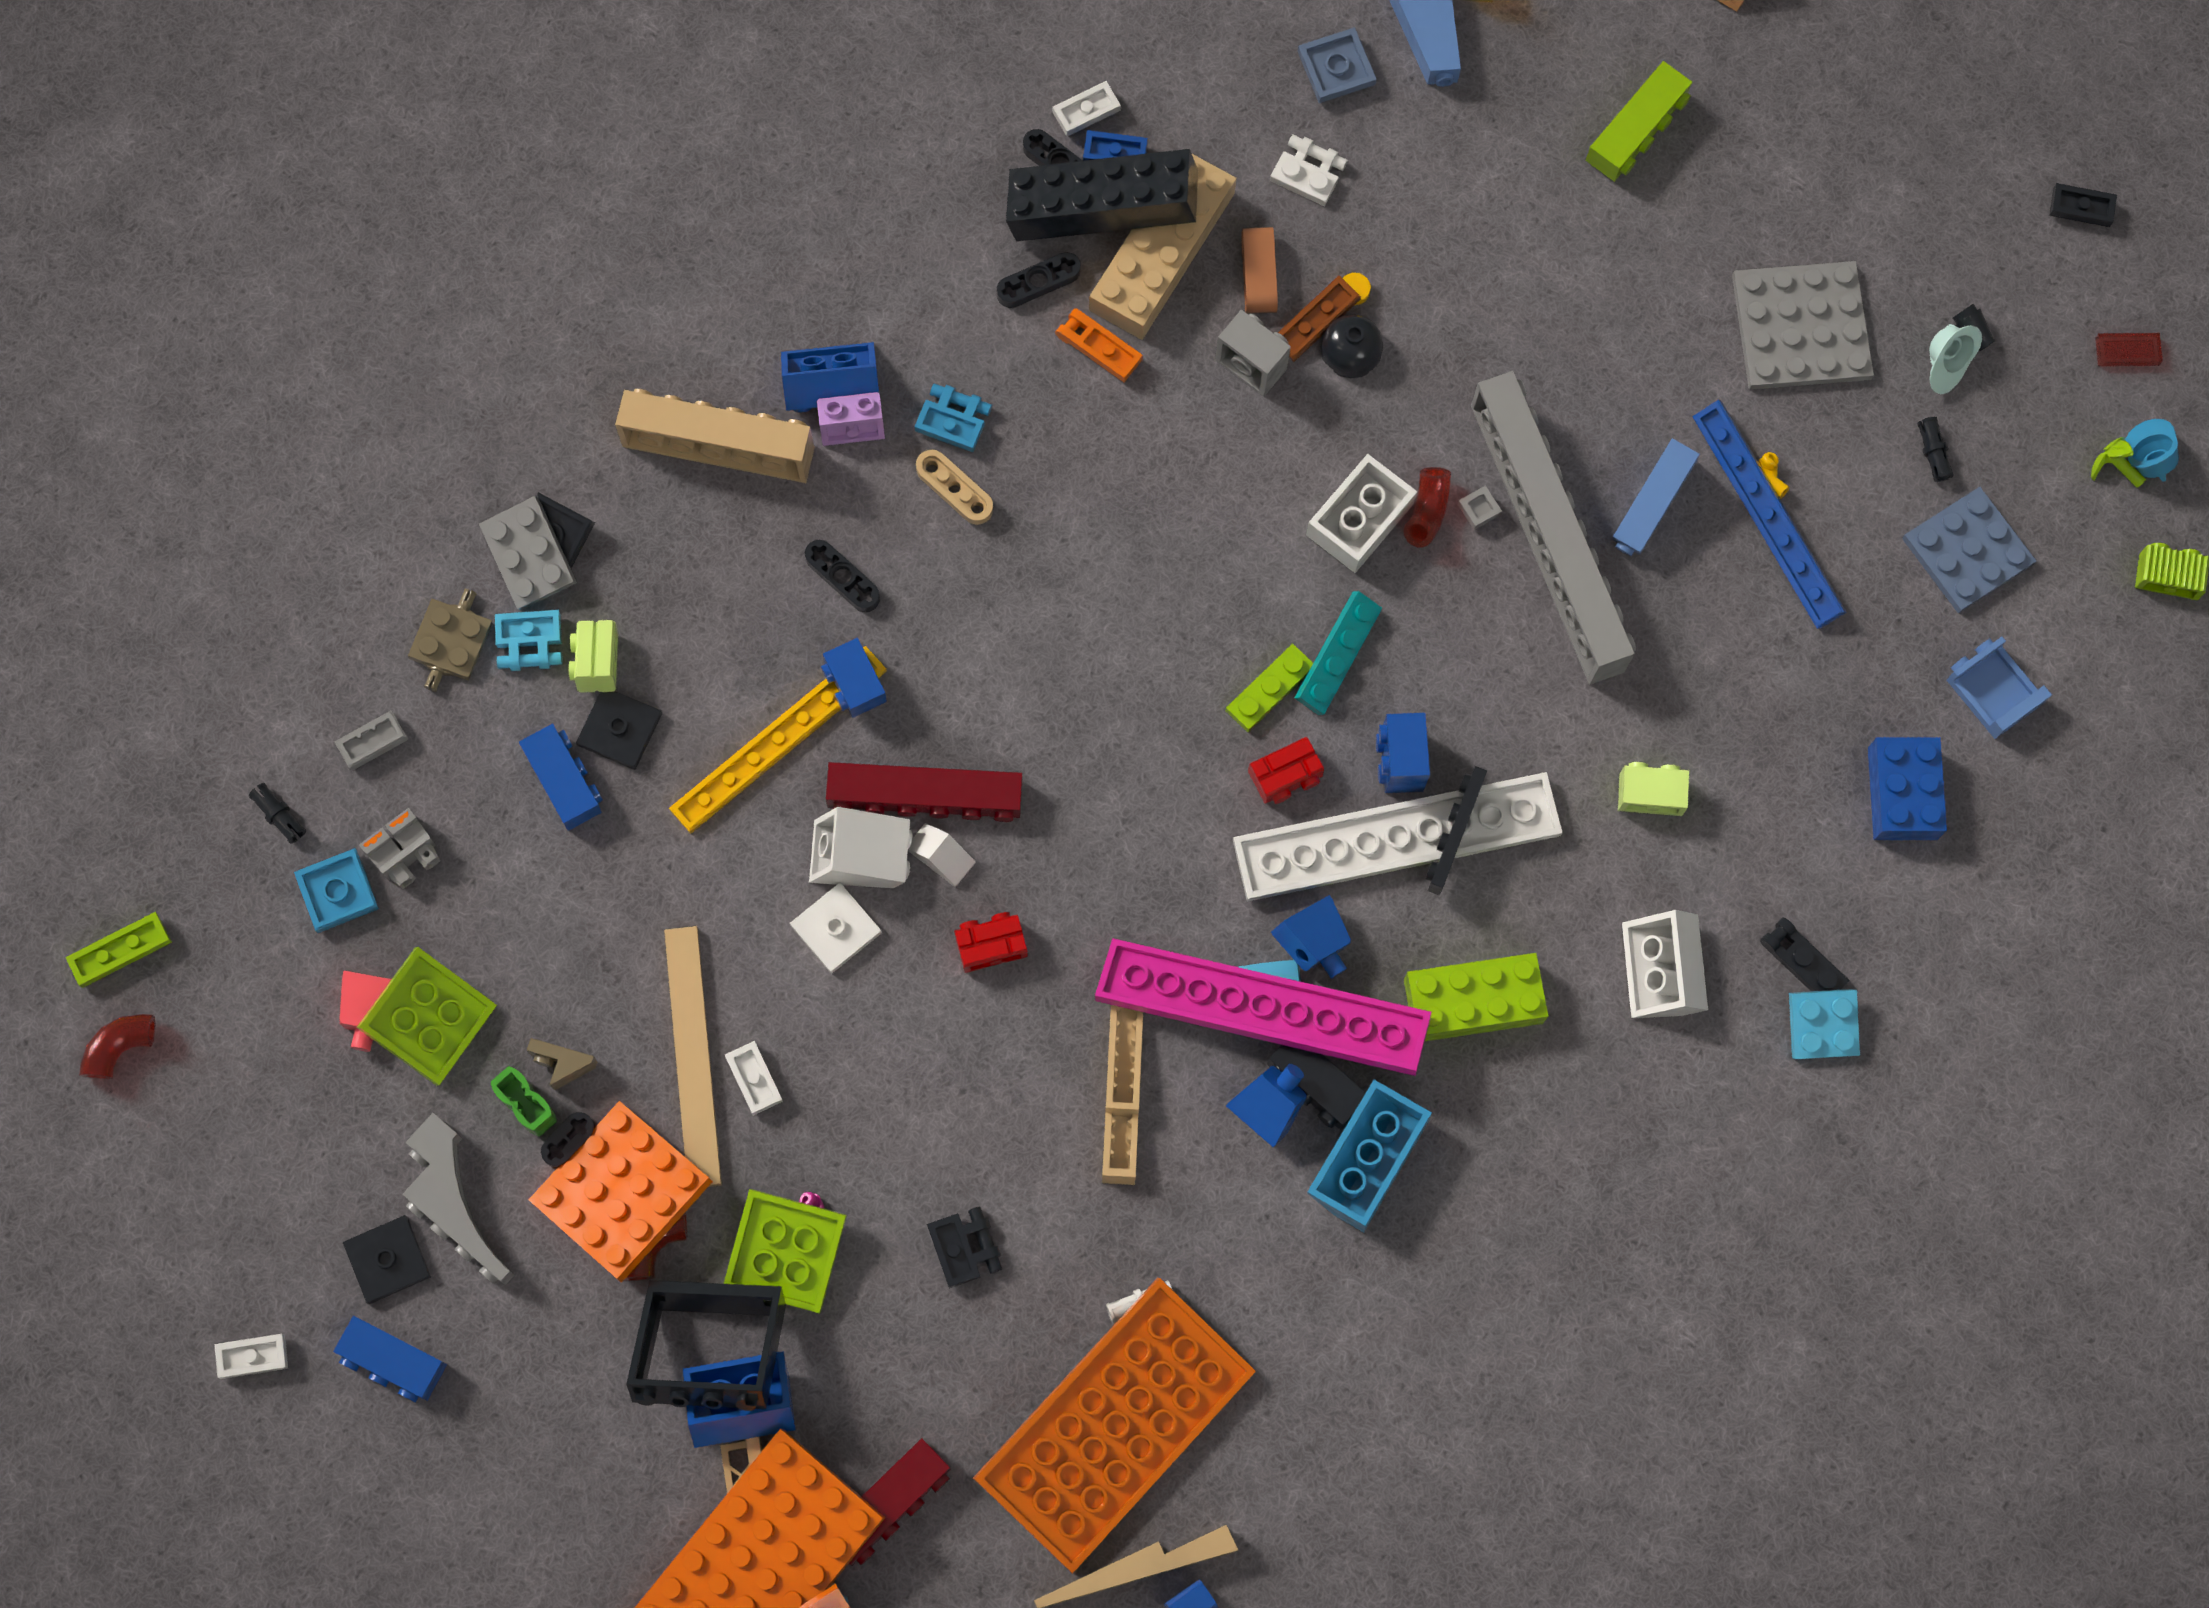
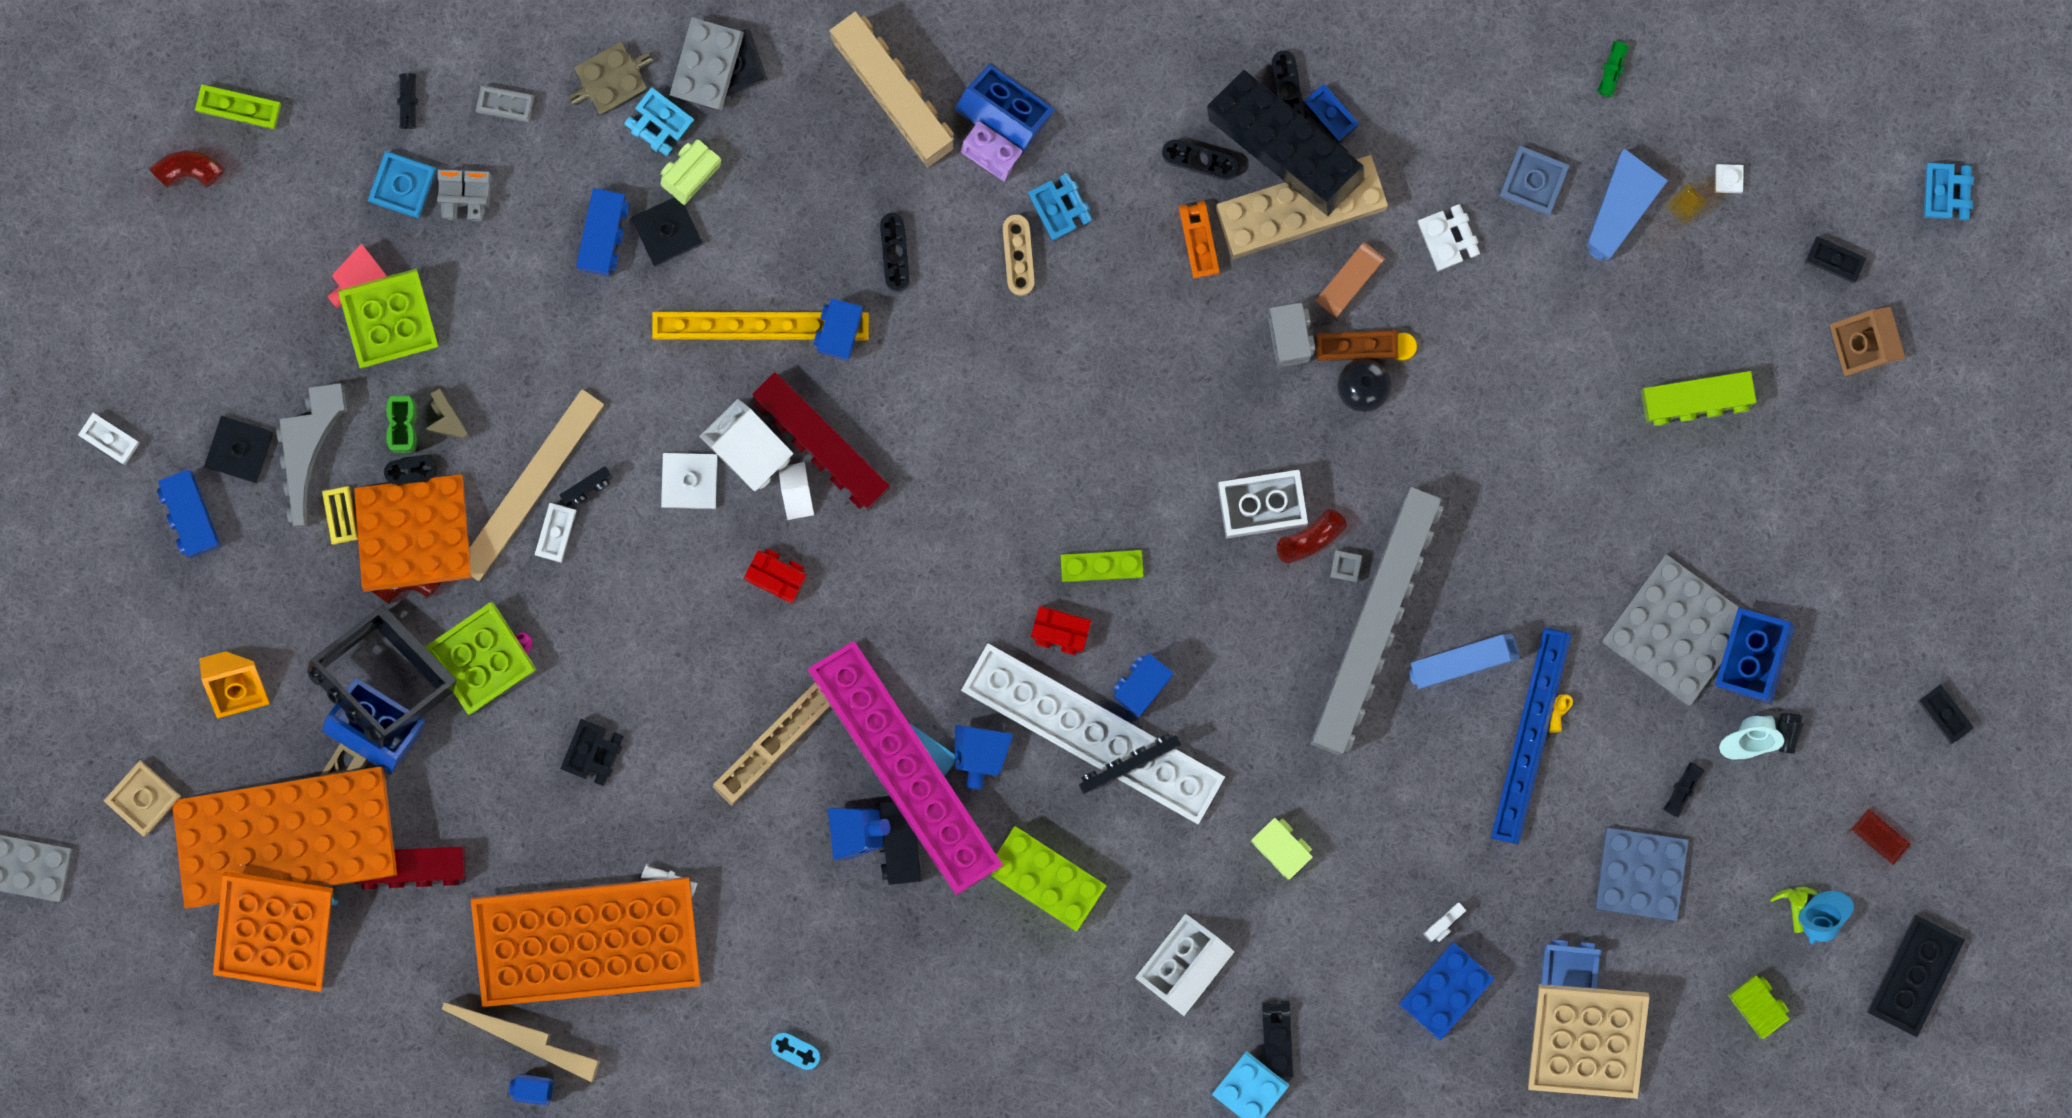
camera: 45 degrees right, 10 degrees up
(559, 1254) = (345, 537): none -> light yellow tile
(569, 1480) = (232, 683): none -> light orange slope
(742, 1024) = (577, 493): none -> black plate
(1086, 108) = (1338, 67): white plate -> none
(1338, 653) = (1165, 582): teal plate -> none
(1369, 1155) = (887, 917): dark azure slope -> none
(1393, 1345) = (798, 1045): none -> medium azure beam
(1849, 740) = (1440, 927): none -> white plate
(1889, 286) = (1755, 655): none -> blue slope
(2067, 722) = (1588, 1041): none -> tan plate

